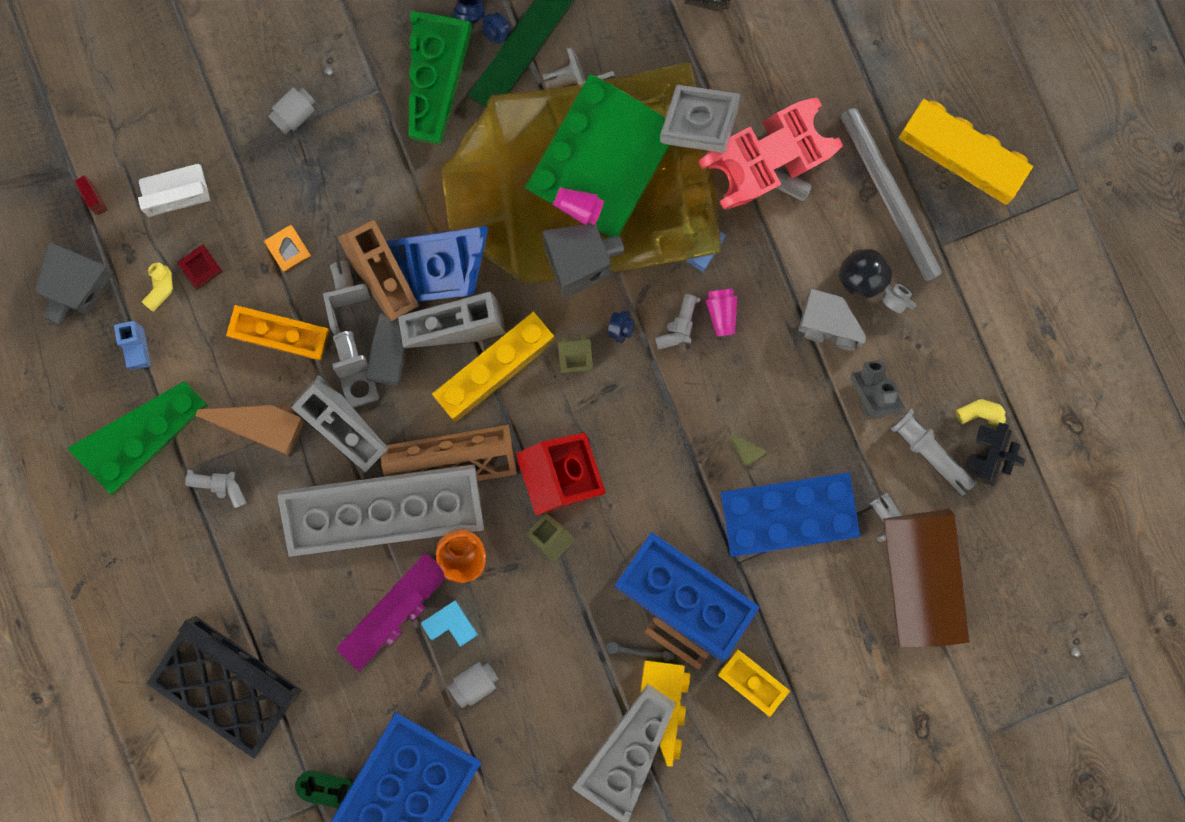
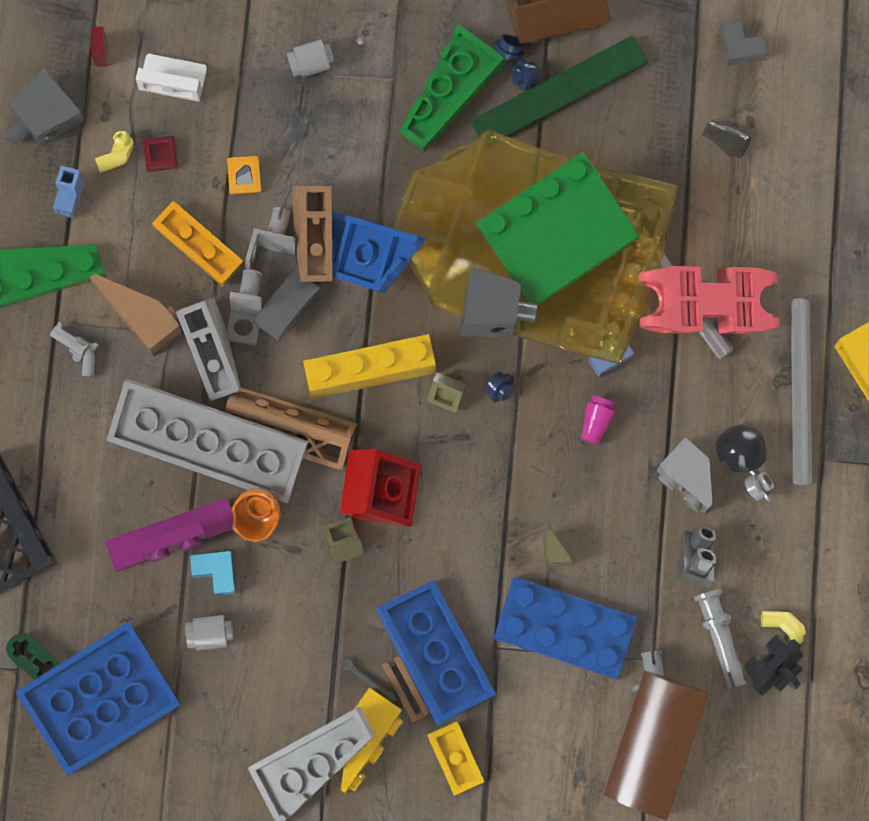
camera: 25 degrees right, 5 degrees down
(454, 322) = (355, 310): light grey slope -> none
(570, 74) = (569, 146): light grey bracket -> none
(579, 205) = (515, 261): dark pink cone -> none
(681, 326) = (554, 413): light grey piece -> none
(700, 118) = (659, 237): light grey tile -> none

